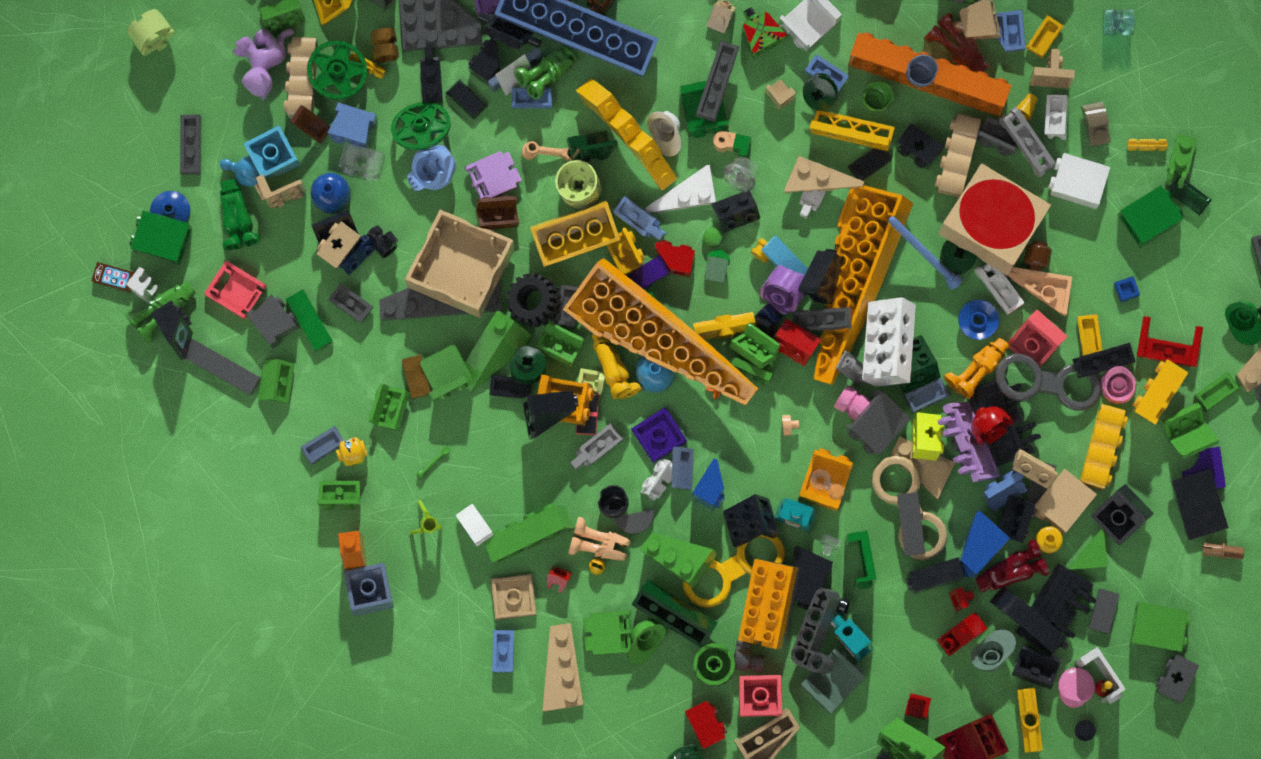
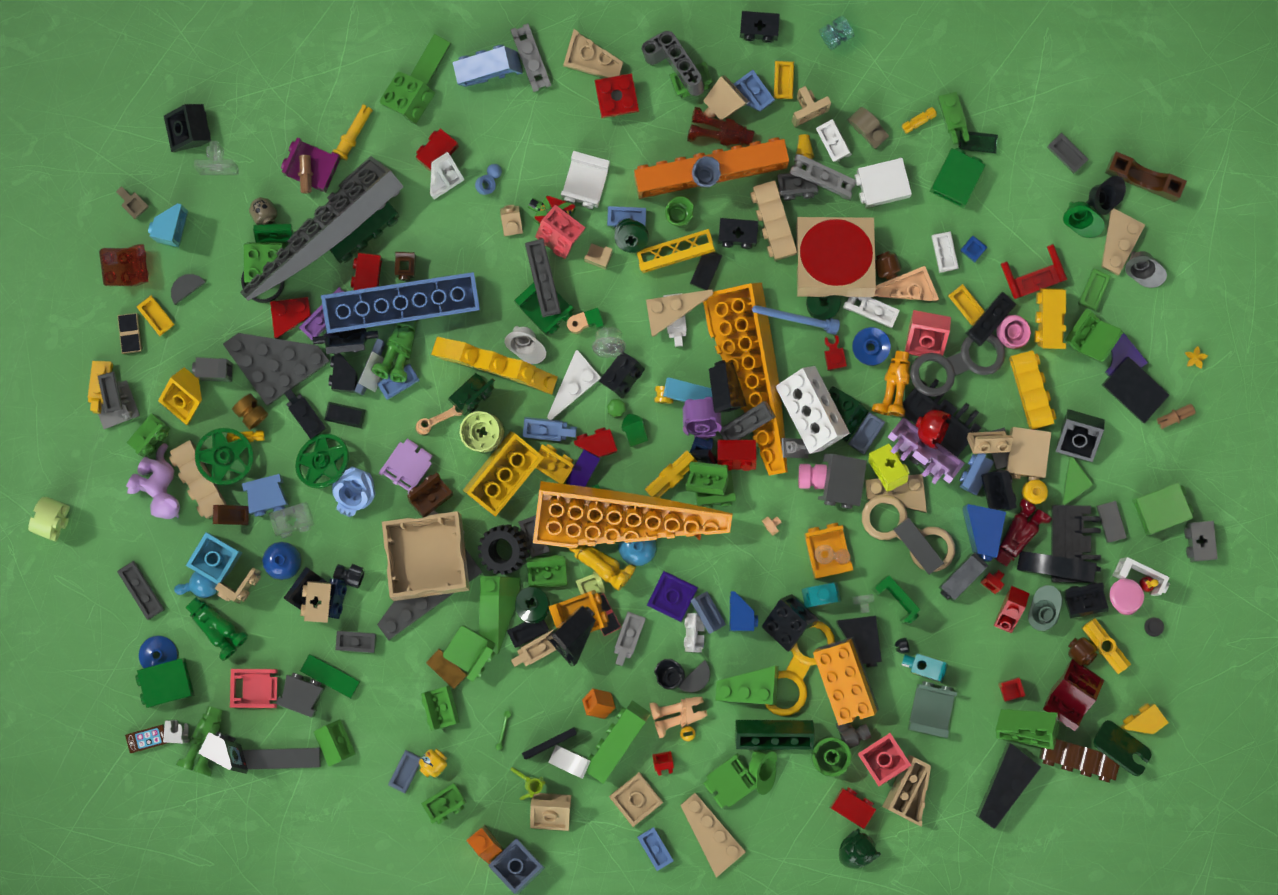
camera: 35 degrees left, 5 degrees up
(429, 559) = (550, 811): none -> tan bracket
(467, 498) = (549, 743): none -> black tile
(503, 408) = (534, 651): none -> tan hinge
(533, 490) = (598, 703): none -> orange panel
(757, 49) = (559, 231): none -> coral bracket
(819, 631) = (890, 653): dark grey beam -> none
(940, 309) = (834, 356): none -> red plate
(1004, 712) = (1082, 651): none -> reddish brown head
(1098, 276) = (944, 252): none -> white plate

